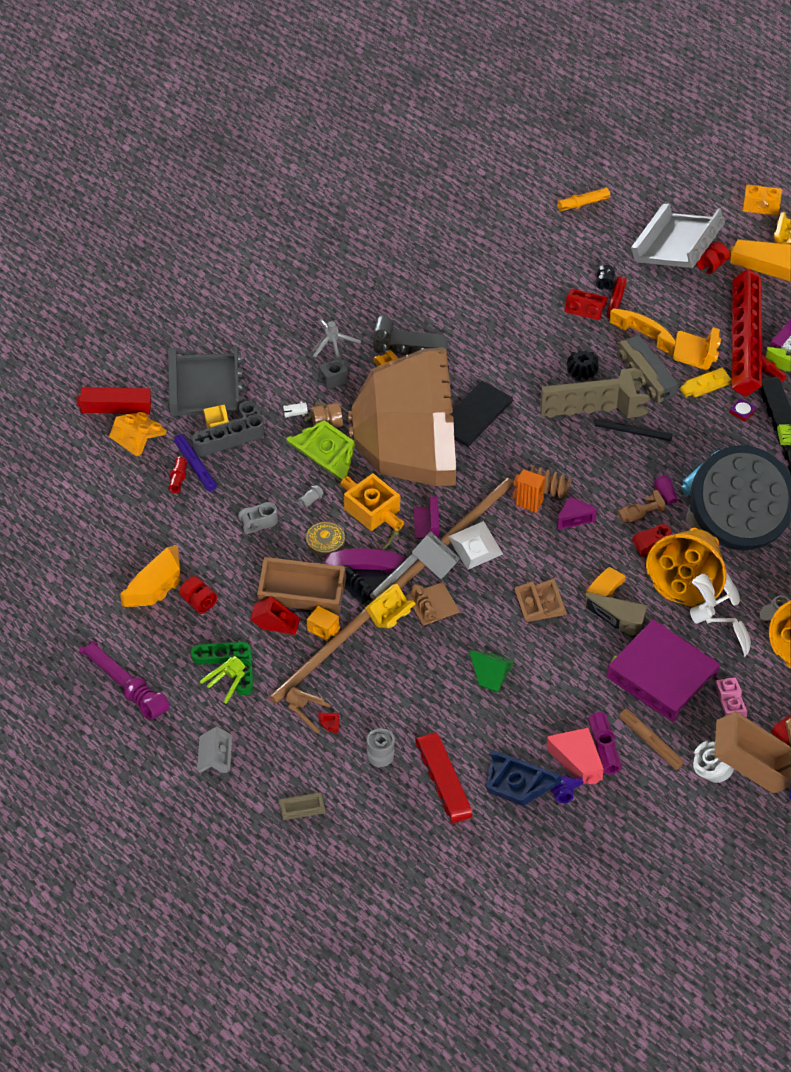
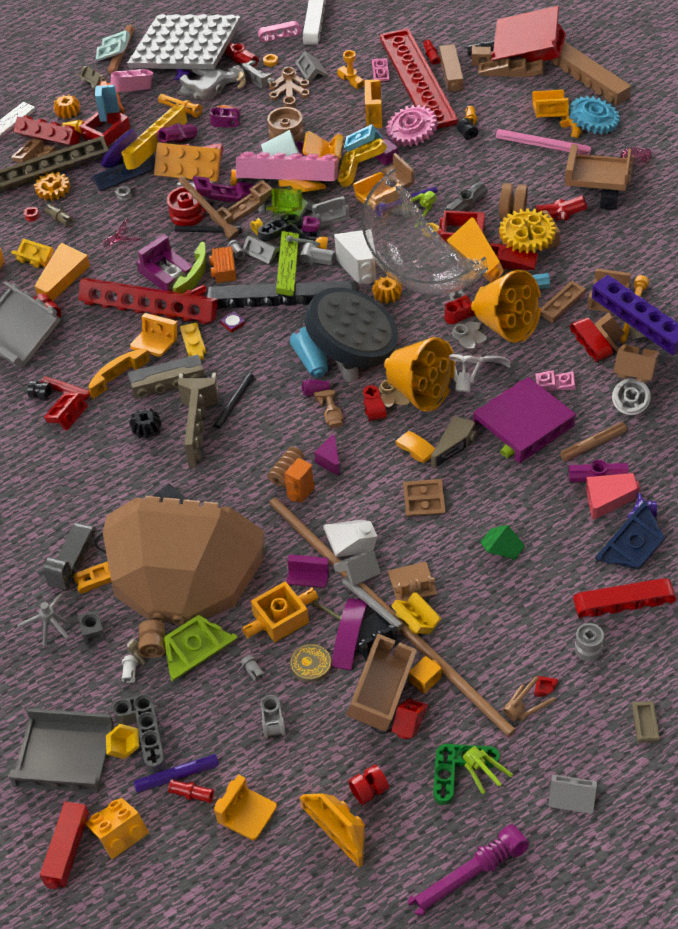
camera: 75 degrees left, 0 degrees up
(164, 511) = (244, 809): none -> light orange bracket

